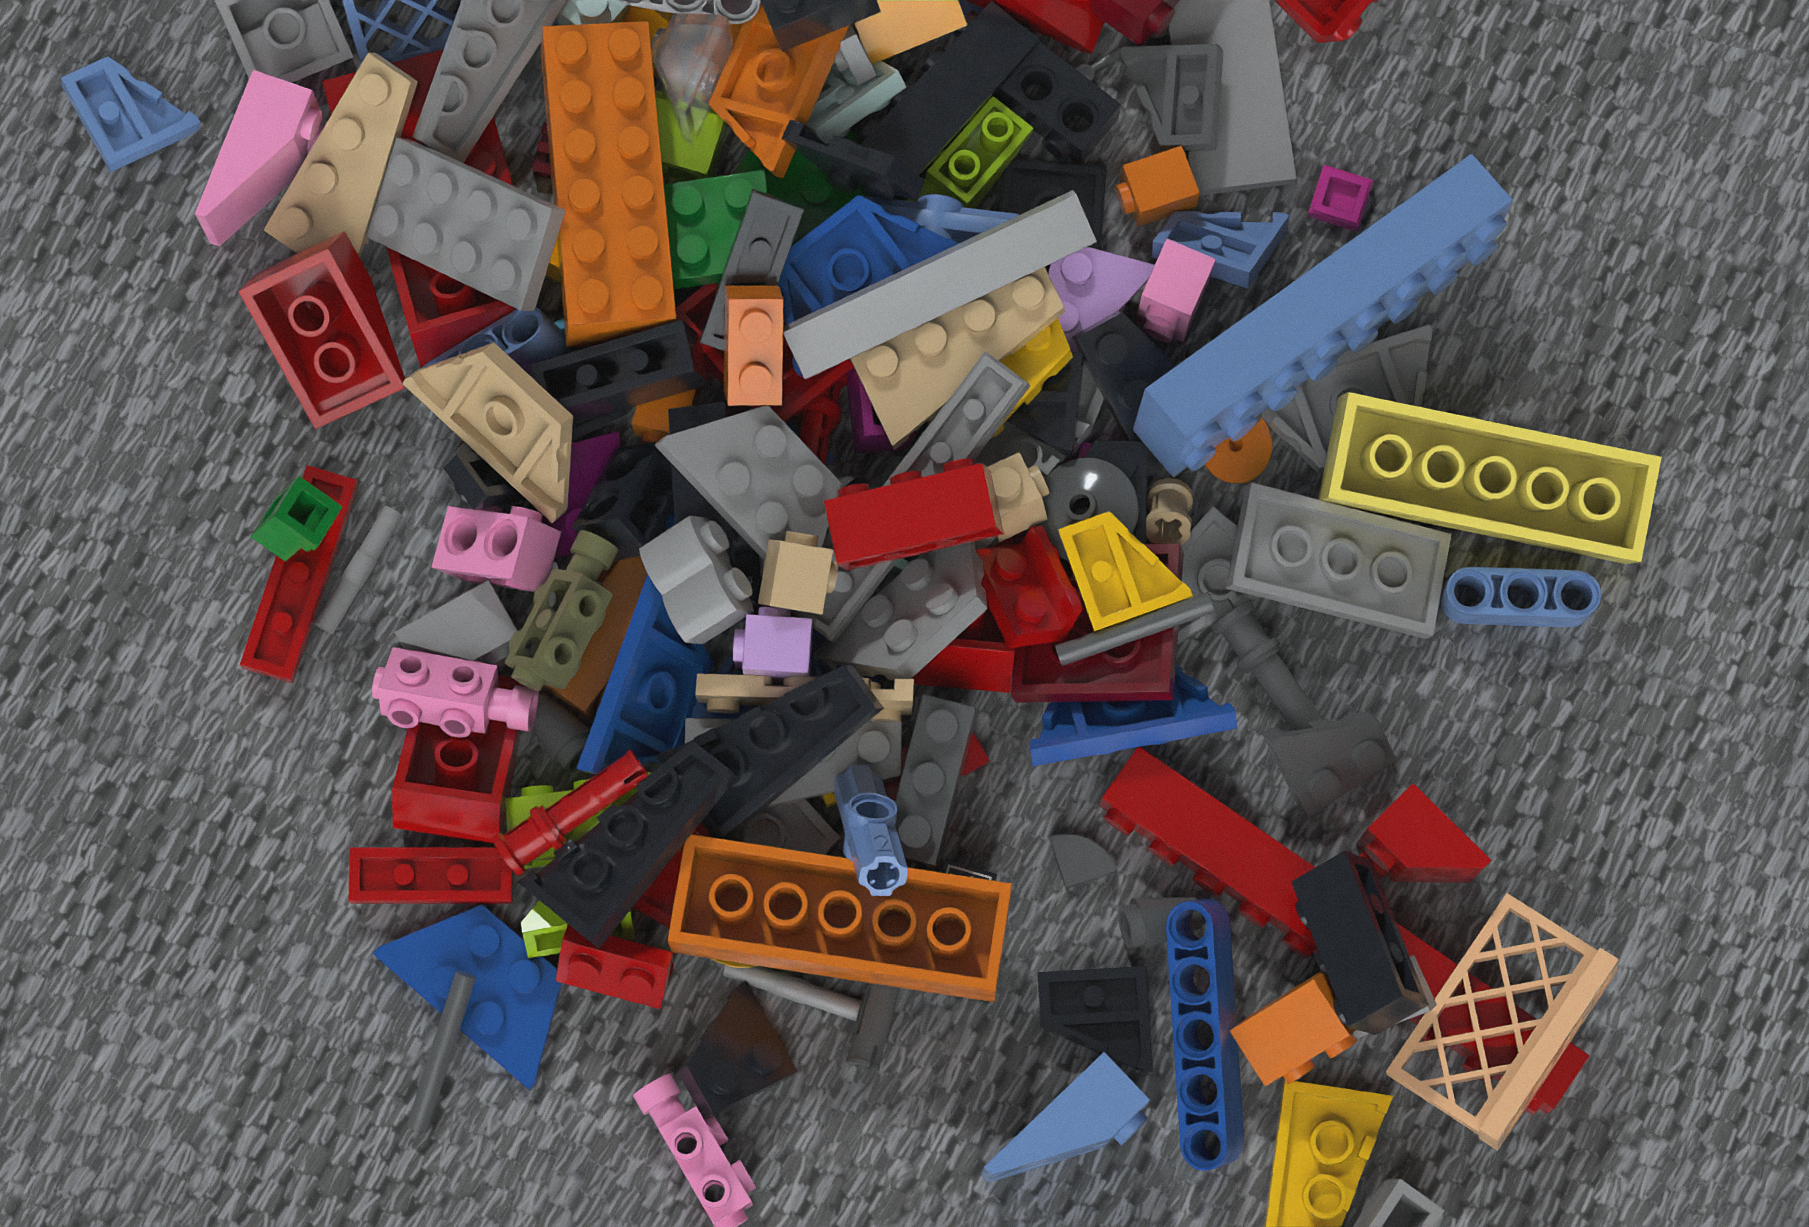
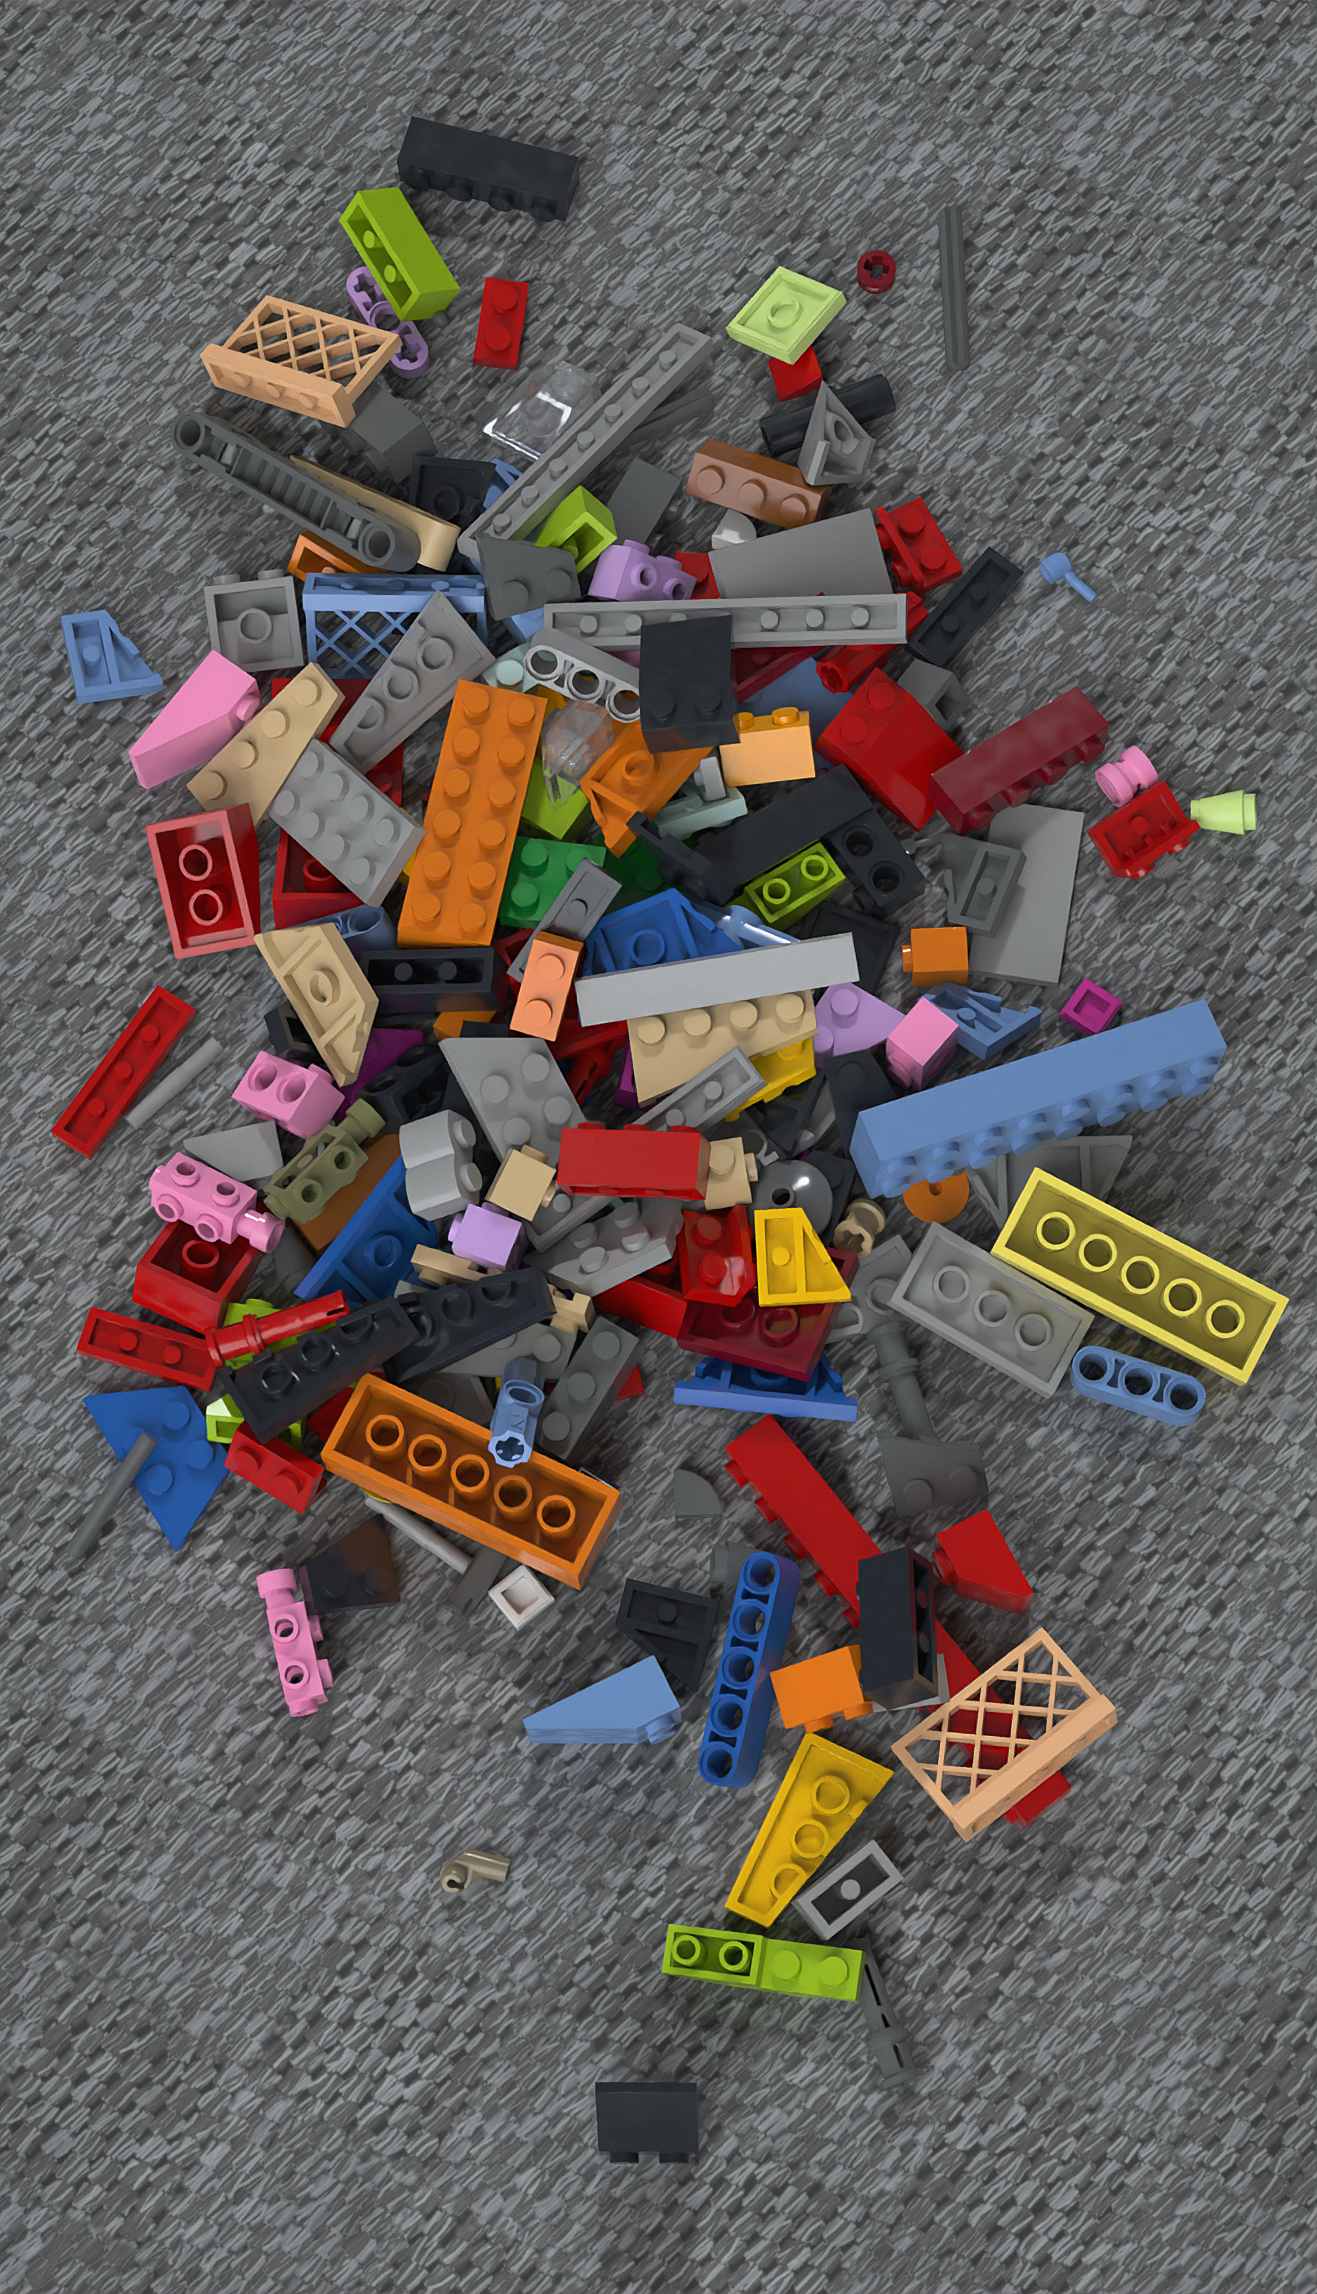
camera: 25 degrees right, 5 degrees down
(296, 519) = (131, 1024): green brick -> none
(926, 1026) = (521, 1596): none -> white tile
(1135, 628) = (795, 1312): dark grey bar -> none

